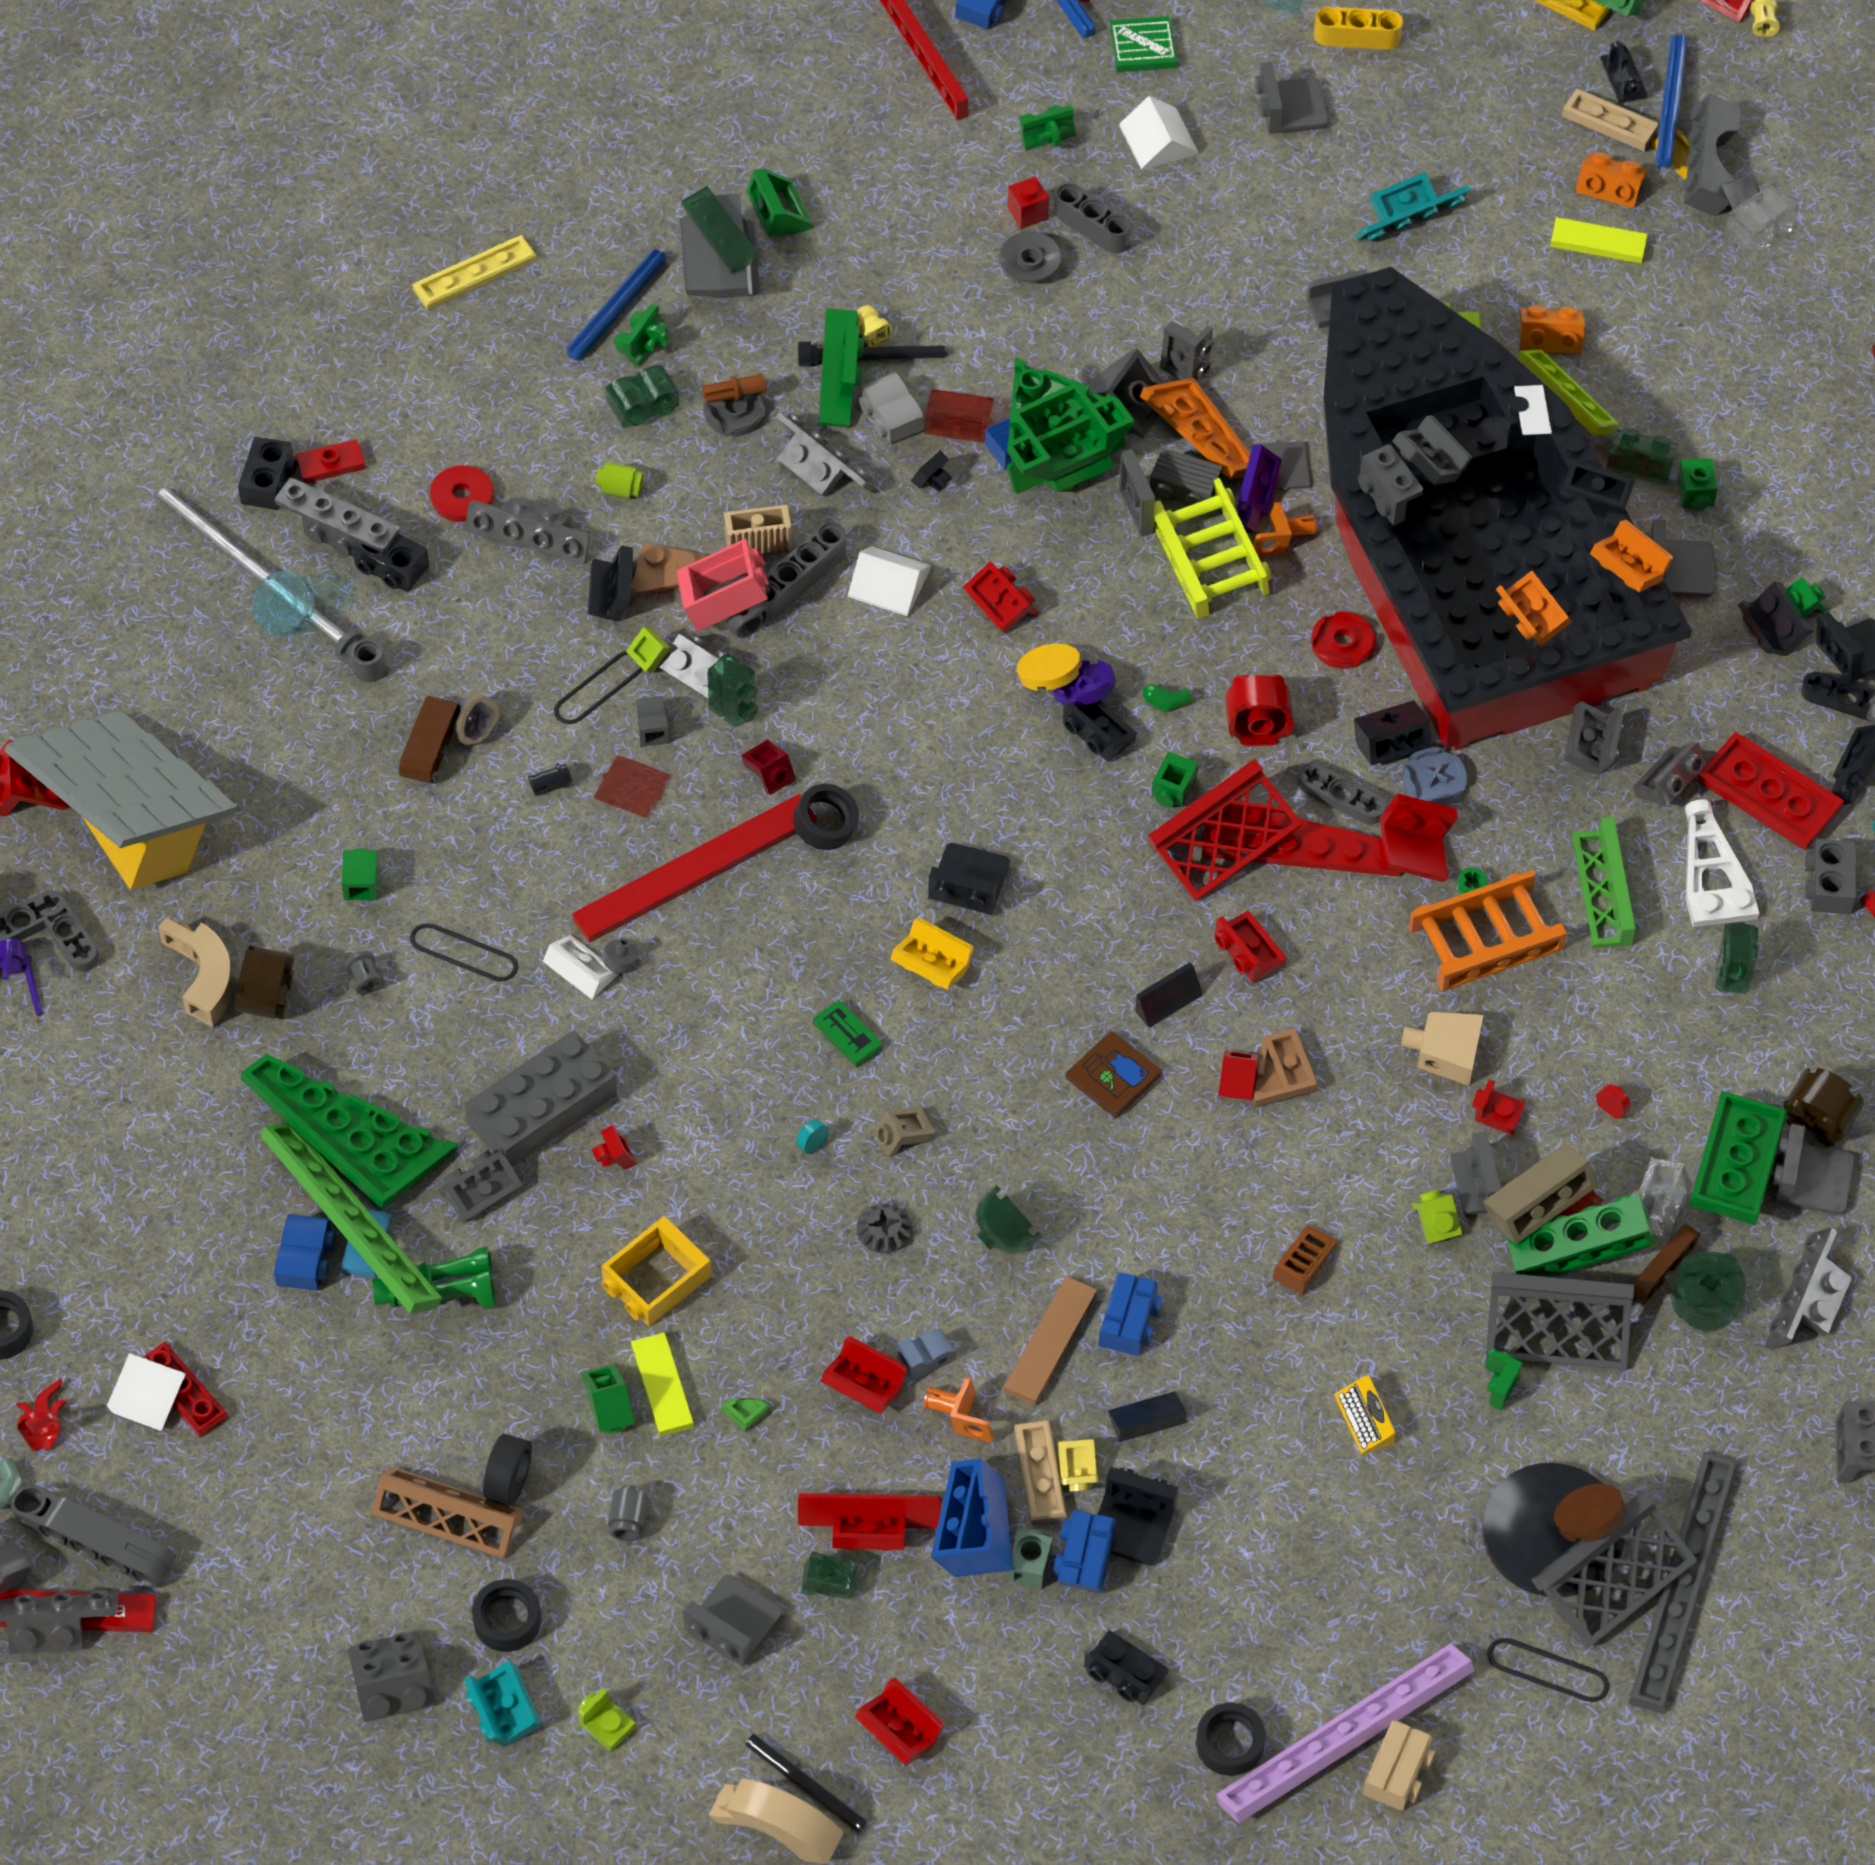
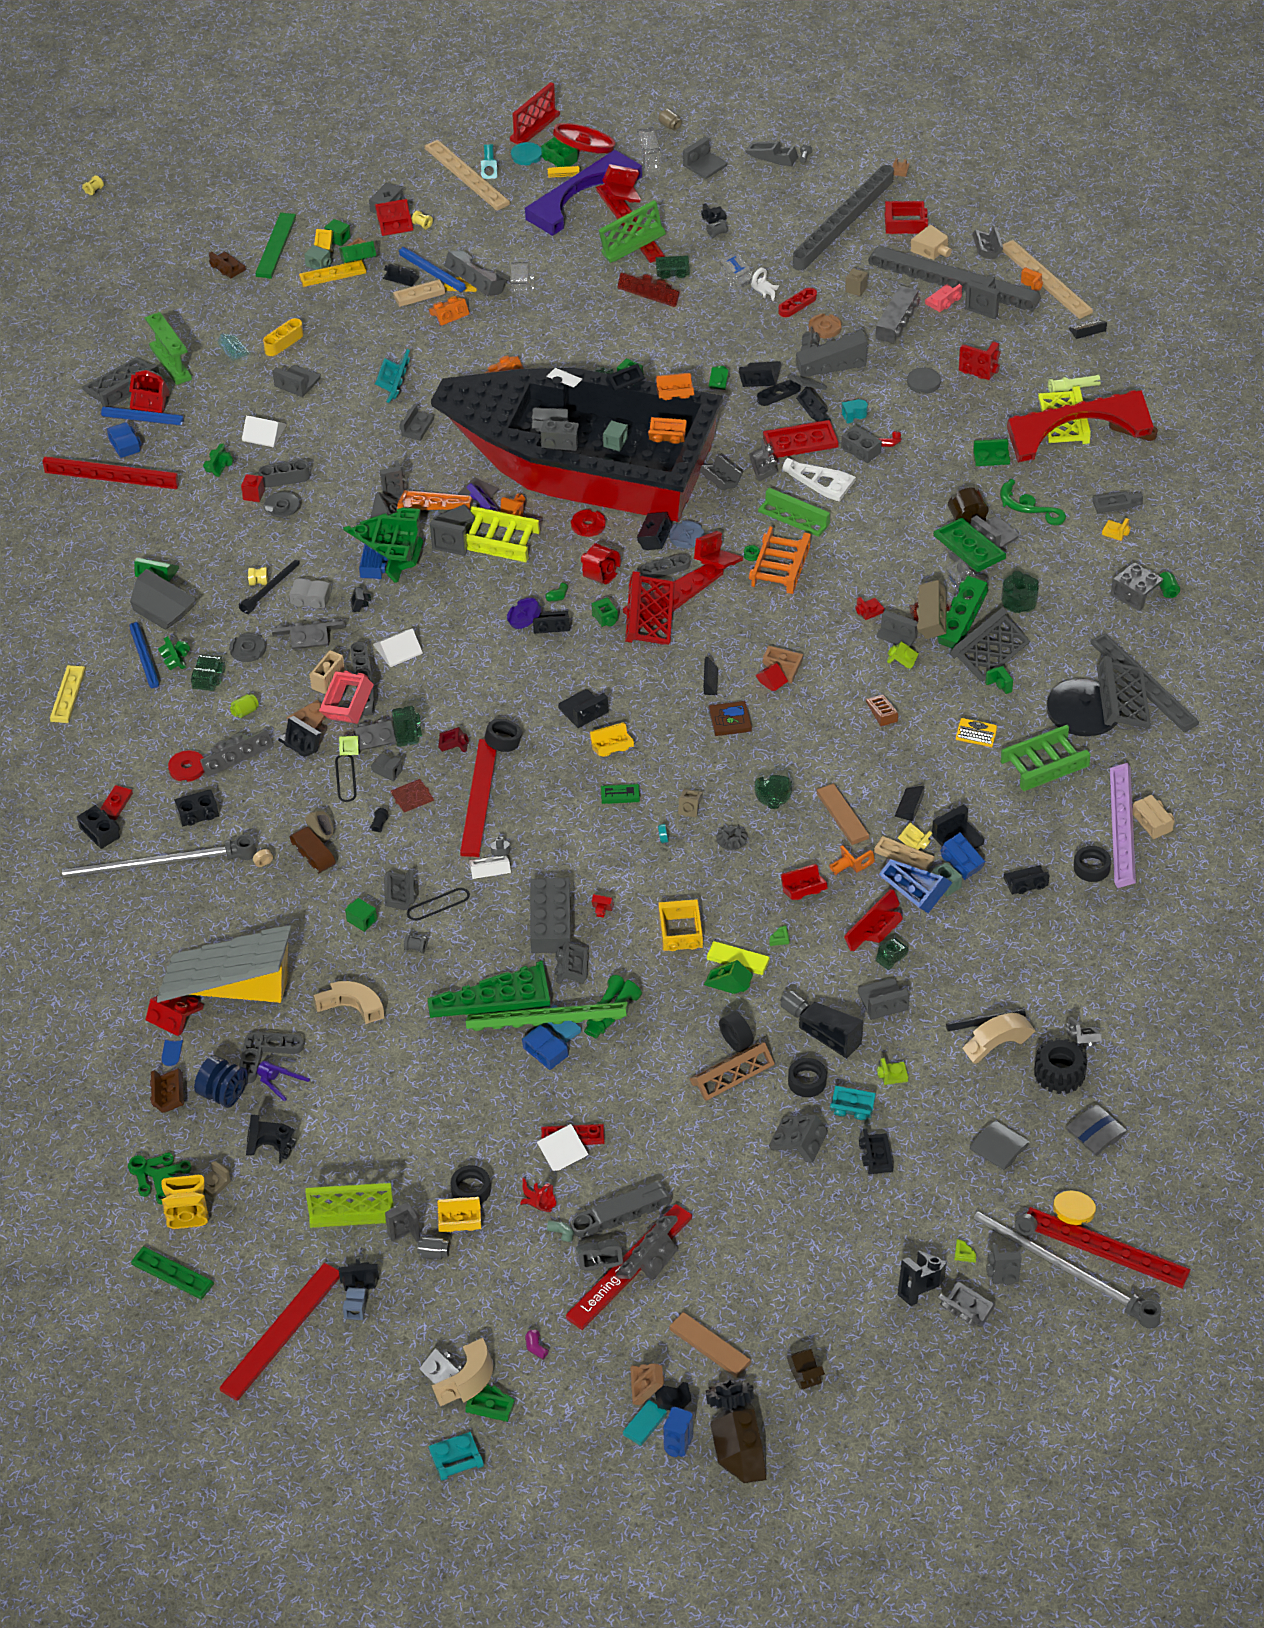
camera: 50 degrees left, 10 degrees down
(264, 982) = (387, 978): dark brown brick -> none
(283, 603) = (180, 859): clear light blue tile -> none
(334, 520) = (158, 814): flat silver bracket -> none
(367, 693) = (262, 857): none -> tan tile
(435, 1791) = (876, 1153): none -> black bracket
(439, 887) = (399, 890): none -> dark grey bracket
(616, 1589) = (832, 1028): none -> black wedge
(719, 230) = (158, 586): clear green tile -> none
(734, 388) = (241, 637): dark orange axle -> none
(839, 367) = (271, 594): green bracket -> none
(901, 1722) = (987, 966): red bracket -> none
(925, 1353) = (811, 854): sand blue leg -> none
(958, 415) = (340, 574): clear red hinge -> none
(999, 597) = (448, 614): red bracket -> none
(1049, 666) = (503, 619): yellow tile -> none
(1129, 1313) = (856, 779): blue brick -> none
(1143, 44) = (208, 407): green tile -> none
(1249, 946) = (712, 637): red bracket -> none
(1394, 1573) = (1049, 772): none -> bright green fence
(1446, 1044) = (824, 603): tan torso -> none
(1508, 553) = (615, 435): none -> sand green brick
(1551, 1656) = (1173, 740): black piece -> none
(1590, 1512) = (1097, 680): reddish brown tile -> none
(1598, 240) = (474, 332): neon yellow tile -> none
(1613, 1101) = (901, 570): red tile -> none
(1666, 1260) = (993, 597): reddish brown beam -> none
(1736, 957) = (874, 491): clear green brick -> none
(1776, 620) = (724, 386): black bracket -> none
(1813, 1293) = (1047, 565): flat silver bracket -> none

